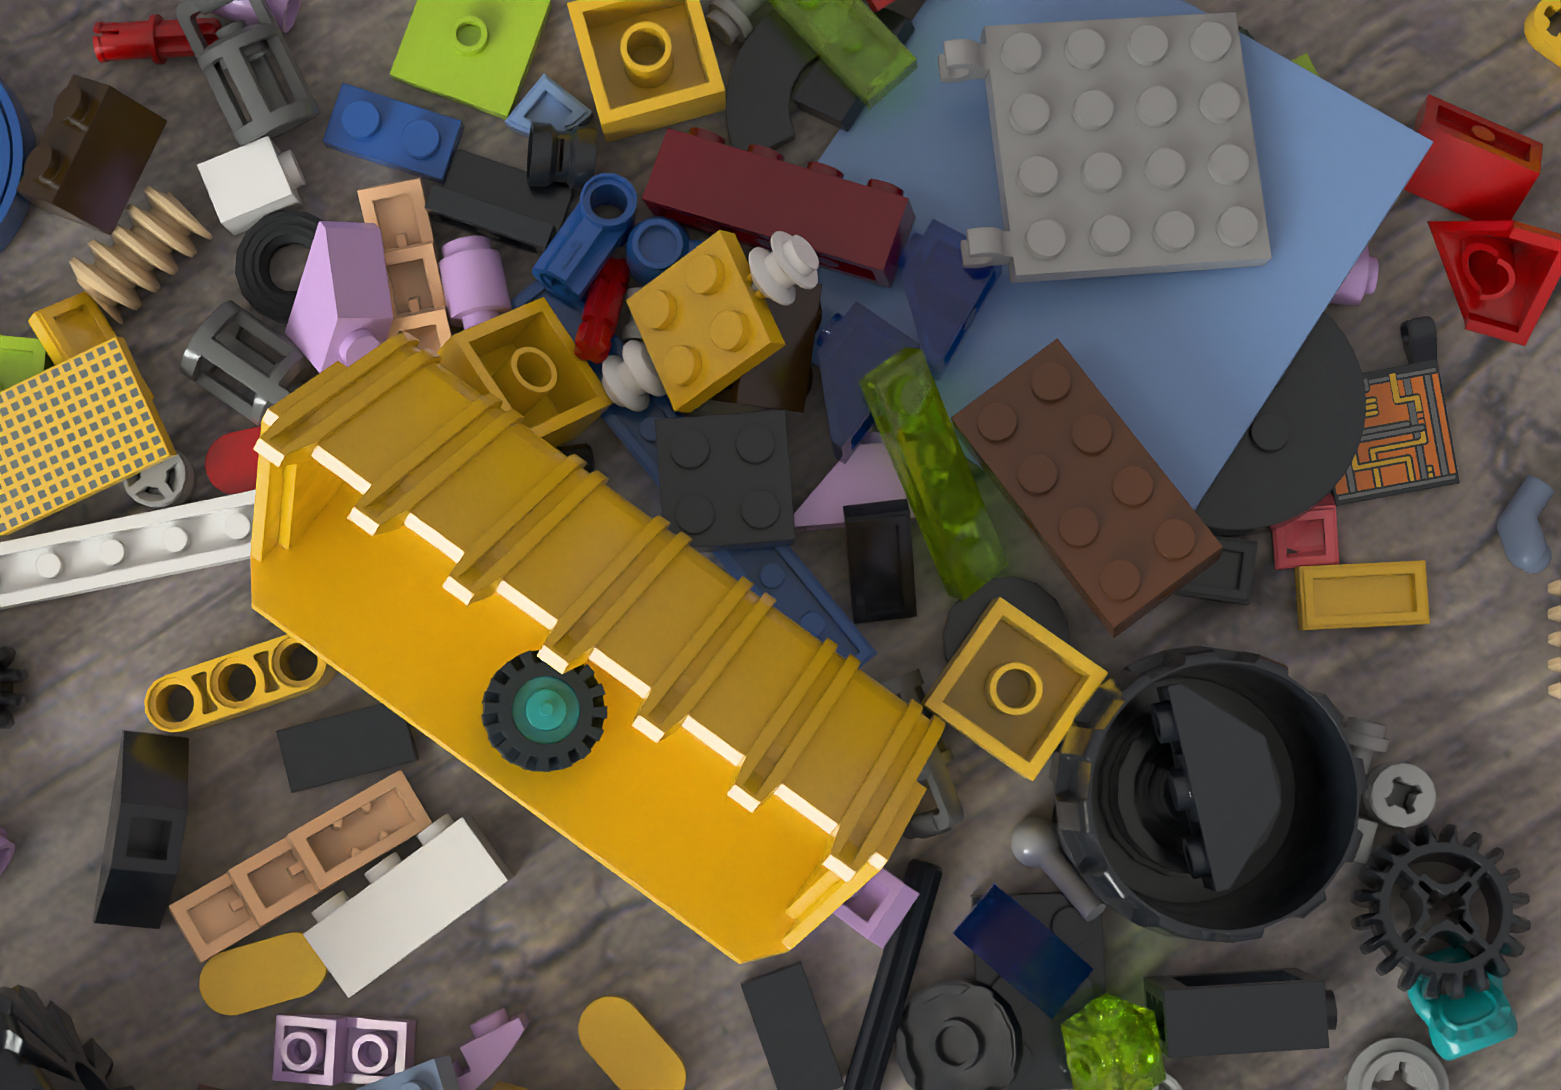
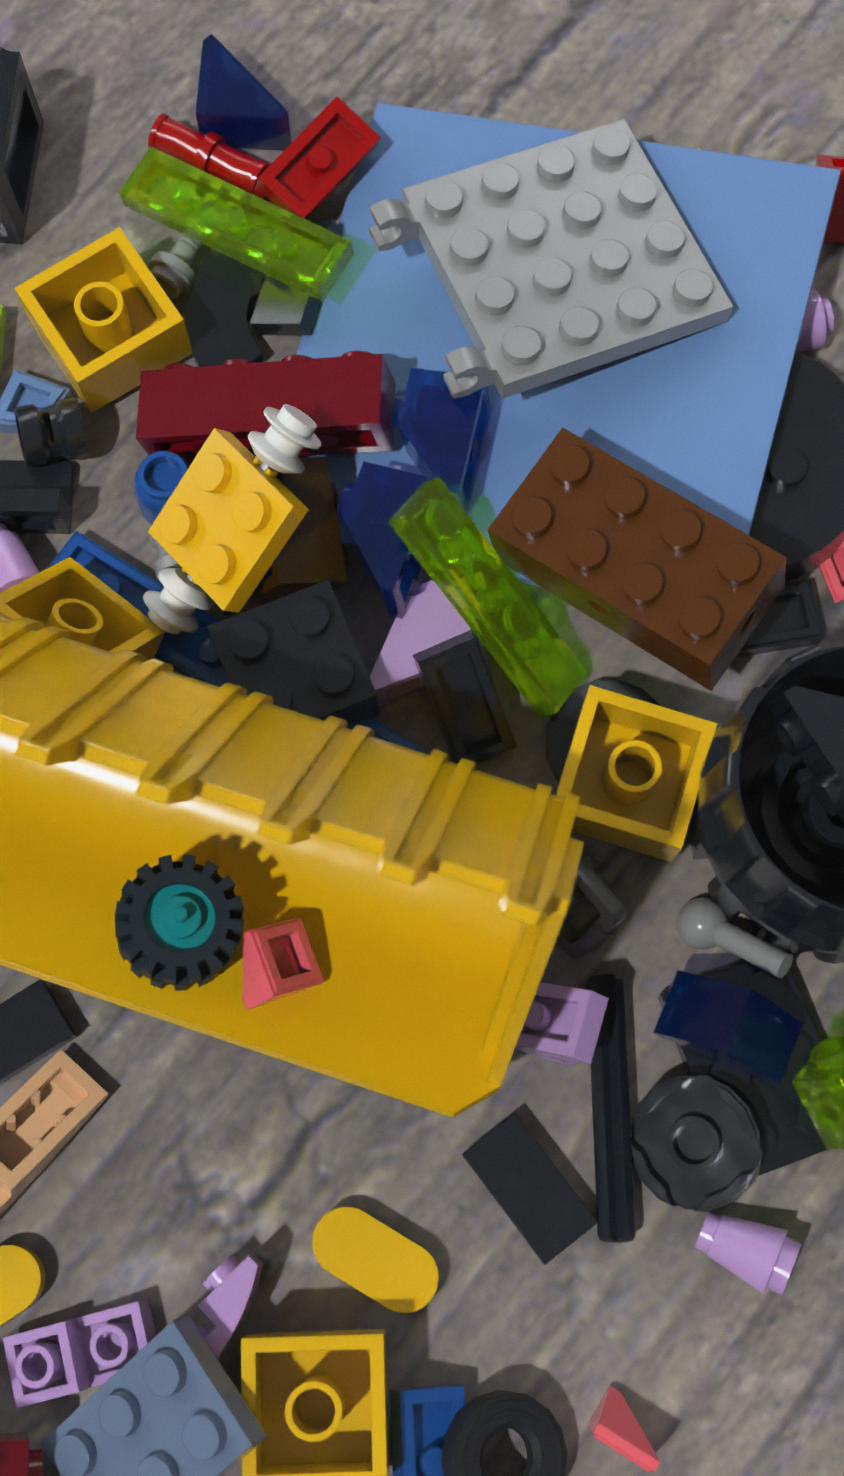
camera: 10 degrees left, 10 degrees down
(406, 902) = (102, 1180): white brick -> none
(587, 240) = (96, 493): blue piece -> none
(602, 312) = (129, 554): red axle -> none
(623, 774) = (277, 963): none -> coral slope

